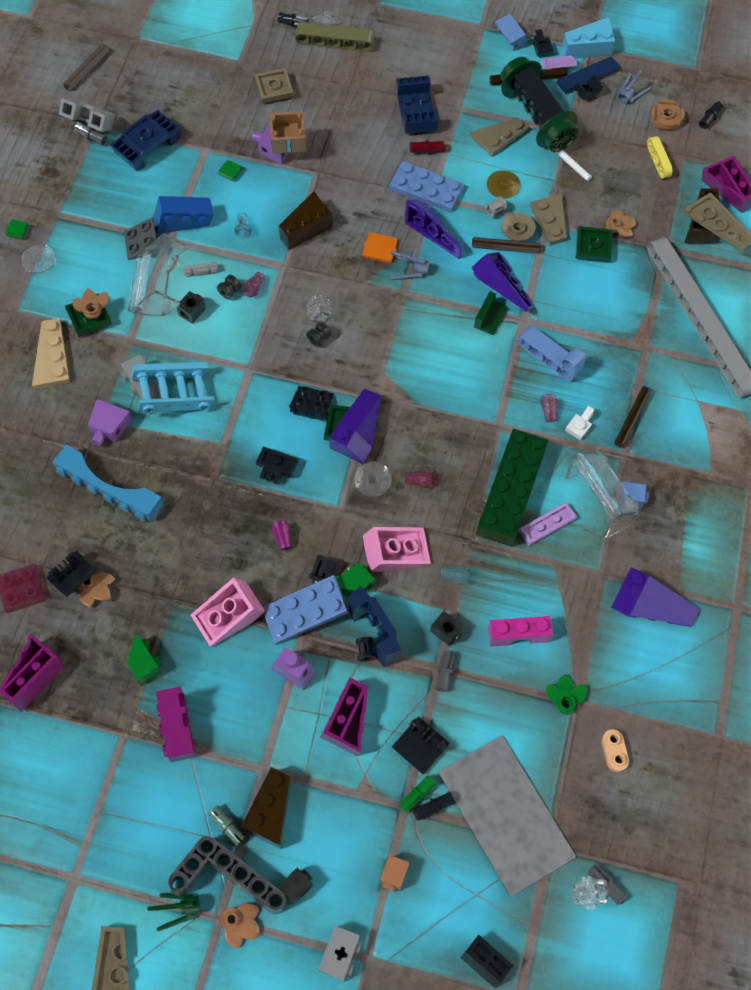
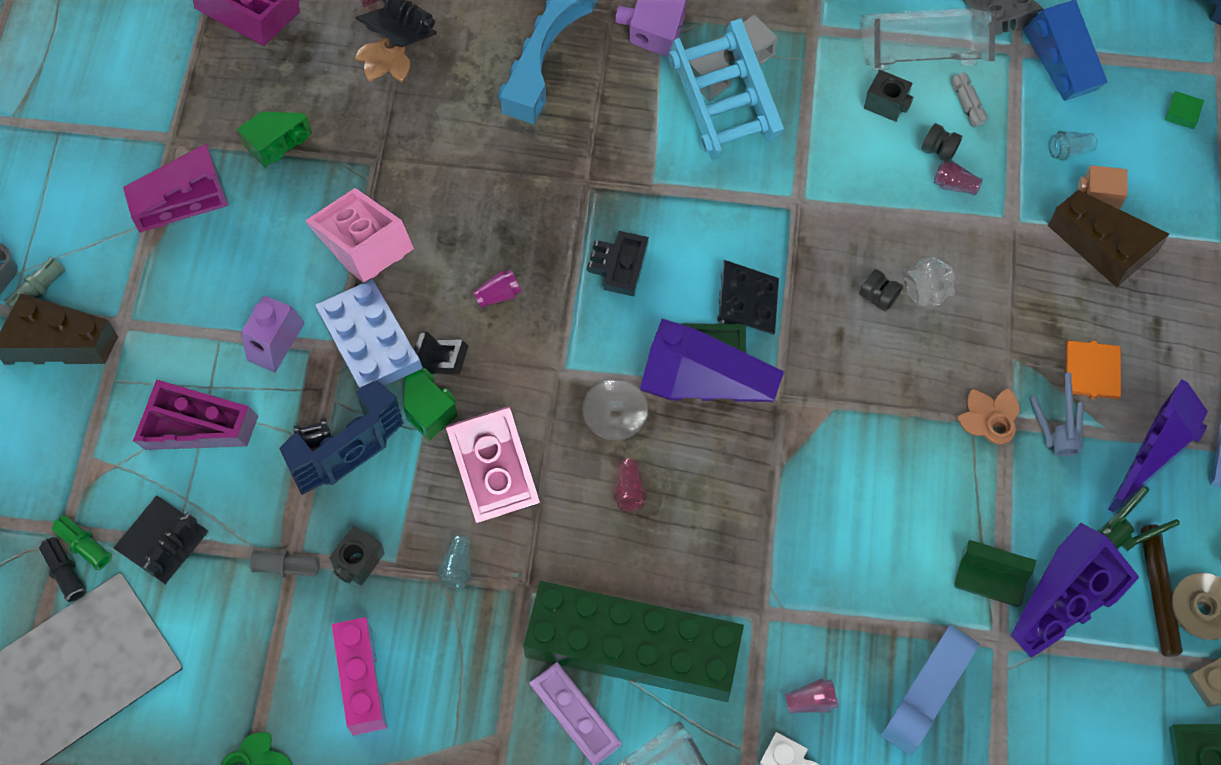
camera: 85 degrees right, 0 degrees up
(274, 216) = (1105, 184): none -> nougat brick
(399, 298) = (989, 413): none -> nougat plate
(474, 253) = (1120, 529): none -> dark green plant

